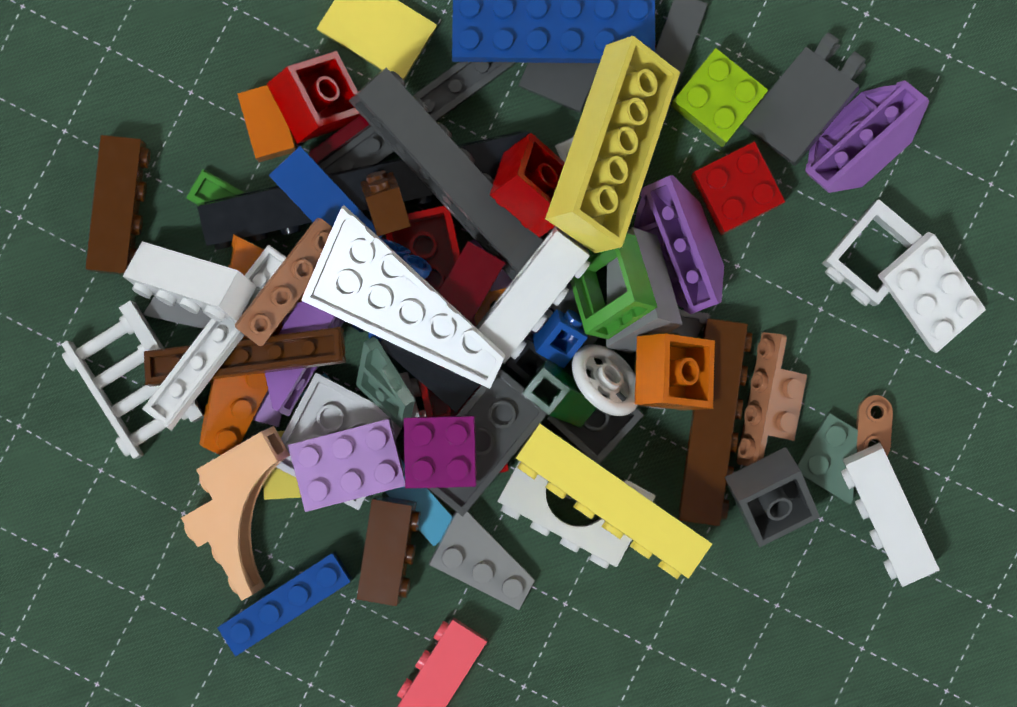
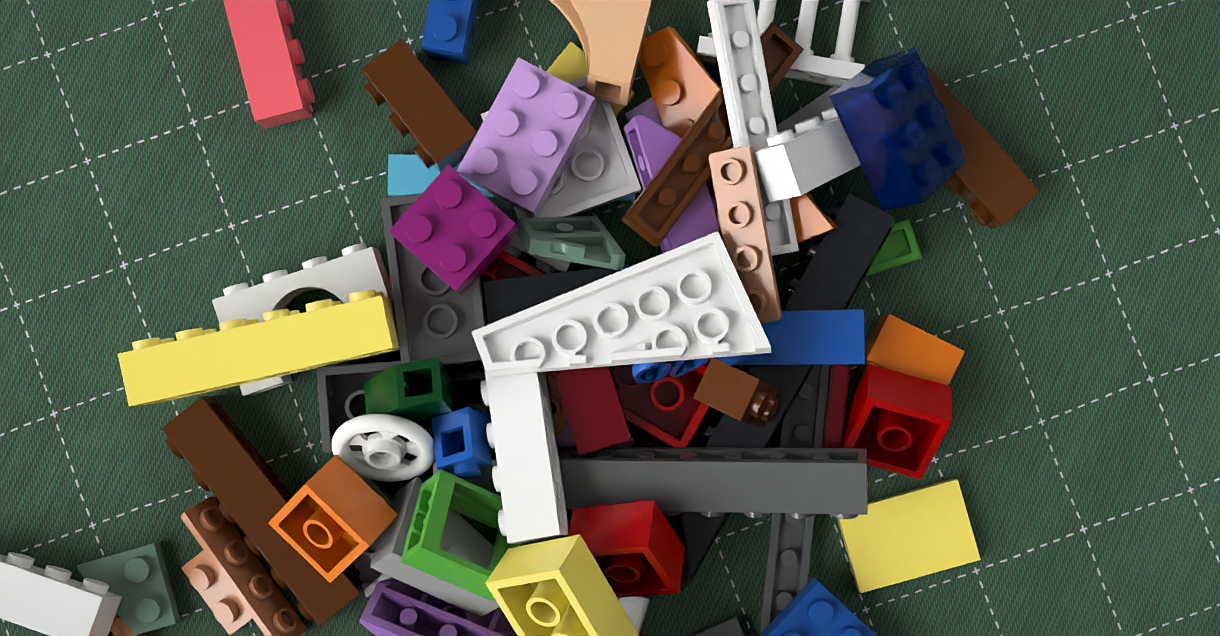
camera: 140 degrees right, 0 degrees up
(143, 250) = (898, 129): none -> clear blue brick
(480, 561) = (333, 183): light grey wing -> none
(772, 497) = (141, 502): dark grey brick -> none

